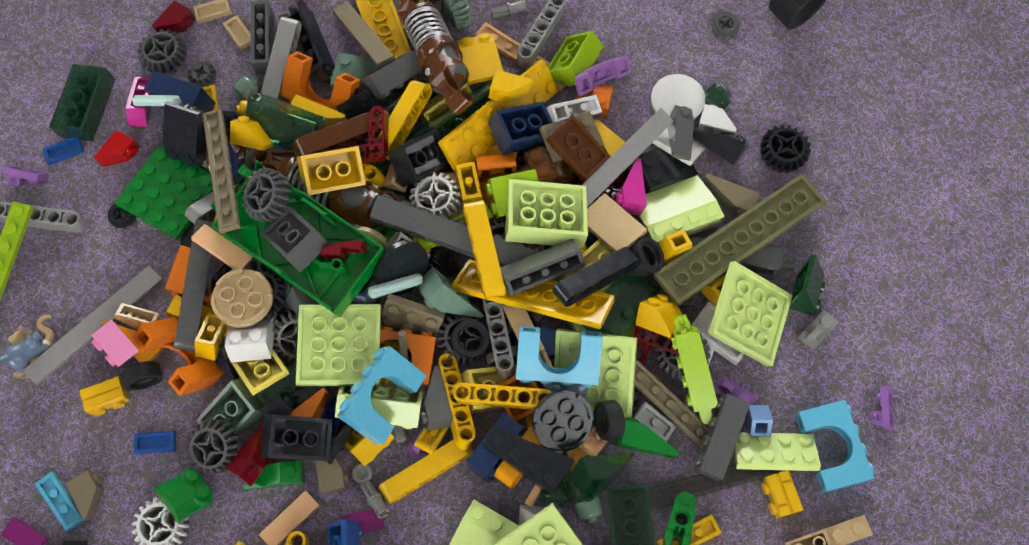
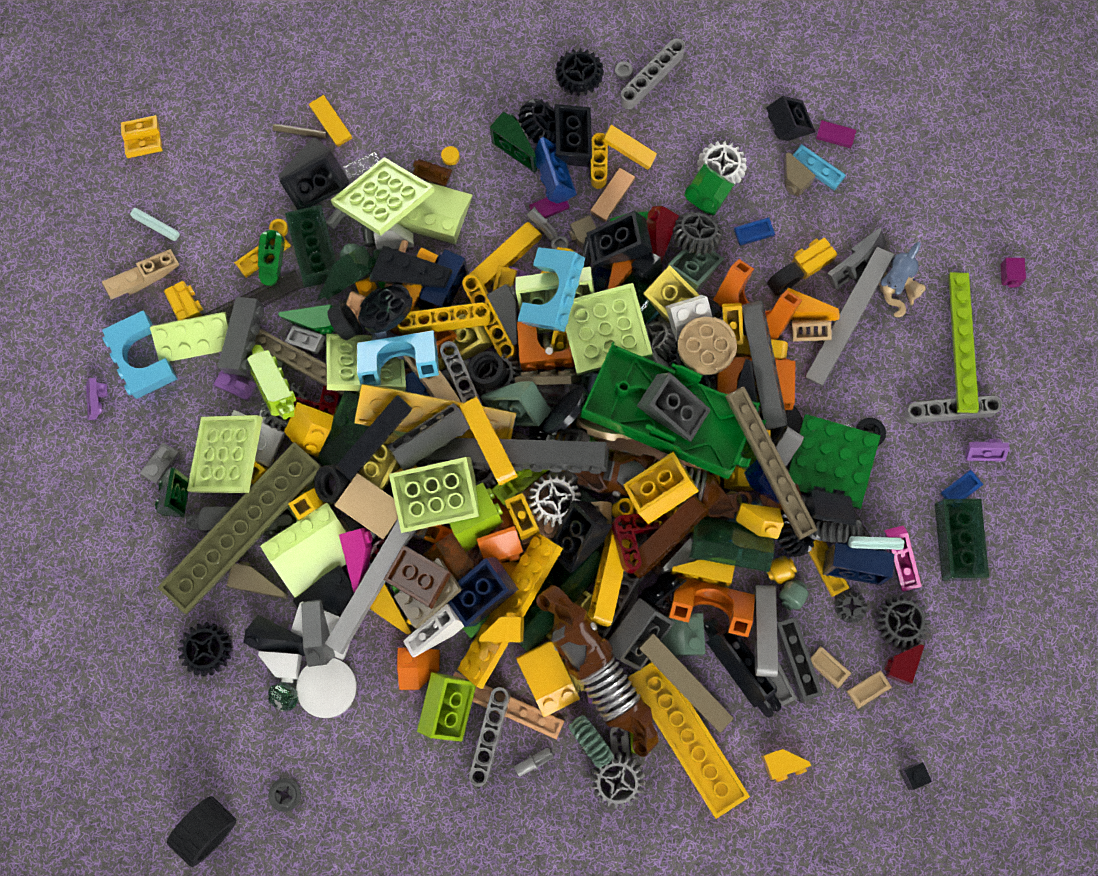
camera: 170 degrees right, 5 degrees up
(55, 385) = (856, 263): none -> dark grey slope
(114, 343) = (816, 286): bright pink slope -> none
(116, 150) = (903, 498): red slope -> none
(221, 248) = (756, 393): light nougat tile -> none
(266, 195) = (713, 439): dark grey gear -> none
(340, 249) = (625, 400): dark red slope -> none
(395, 285) = (575, 384): light aqua axle -> none
(601, 73) = (415, 694): medium lavender slope -> none
(759, 420) = (208, 360): medium blue brick -> none

